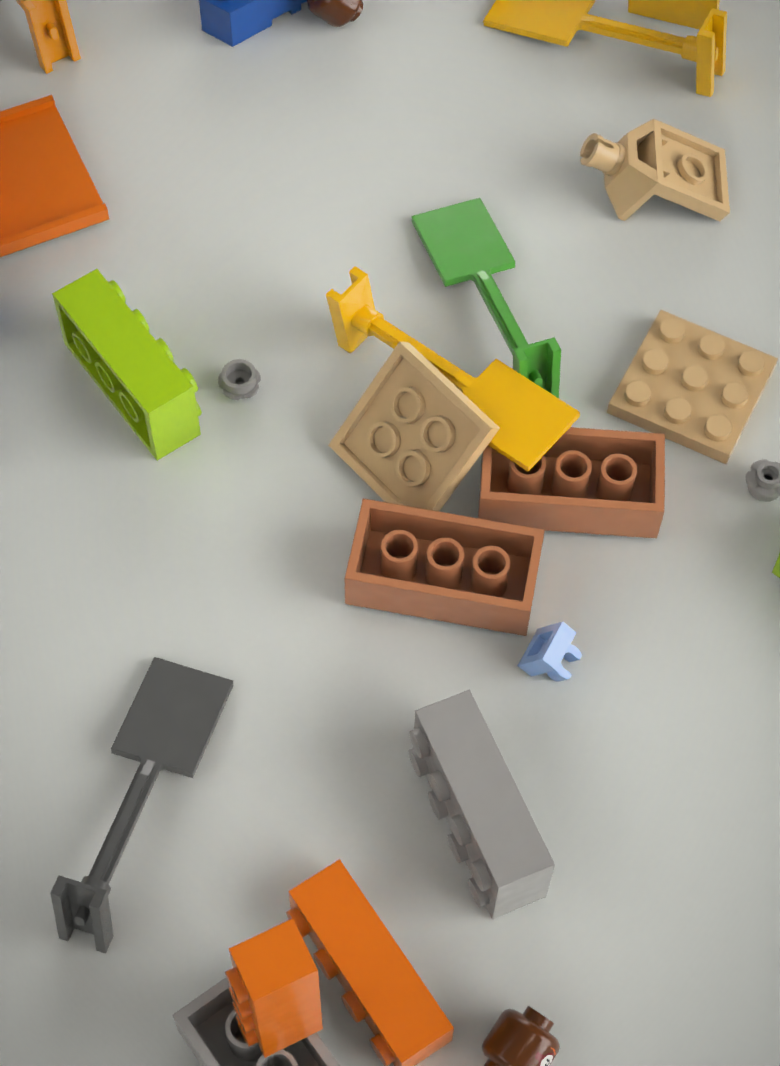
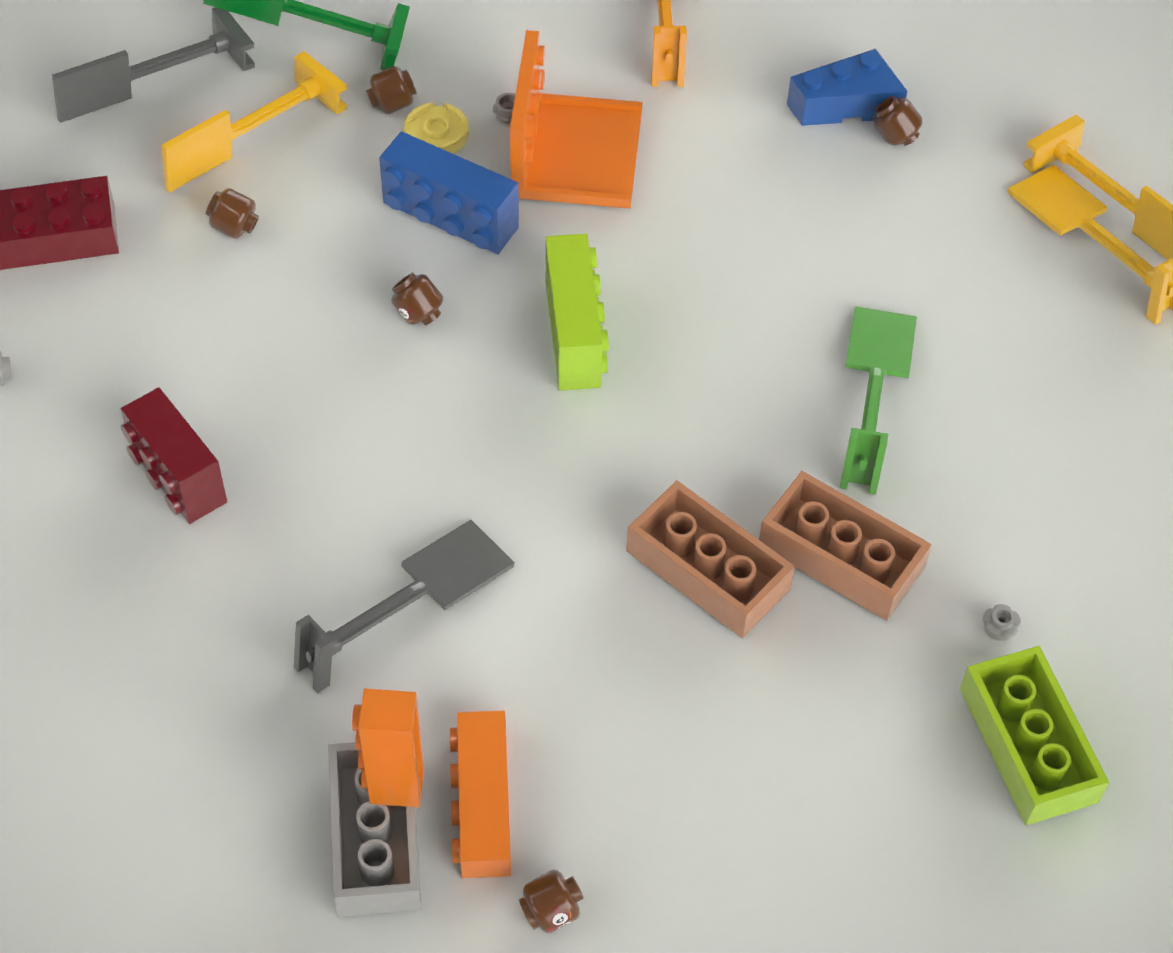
camera: 30 degrees right, 5 degrees down
(239, 371) = (650, 355): light grey plate -> none
(413, 433) = (744, 453): tan plate -> none
(480, 805) = (623, 727): light grey brick -> none
(524, 411) = (816, 466): yellow piece -> none
(548, 649) = (748, 655): light blue tile -> none
(660, 163) = (1072, 355): tan plate -> none
(692, 386) = (990, 528): tan plate -> none

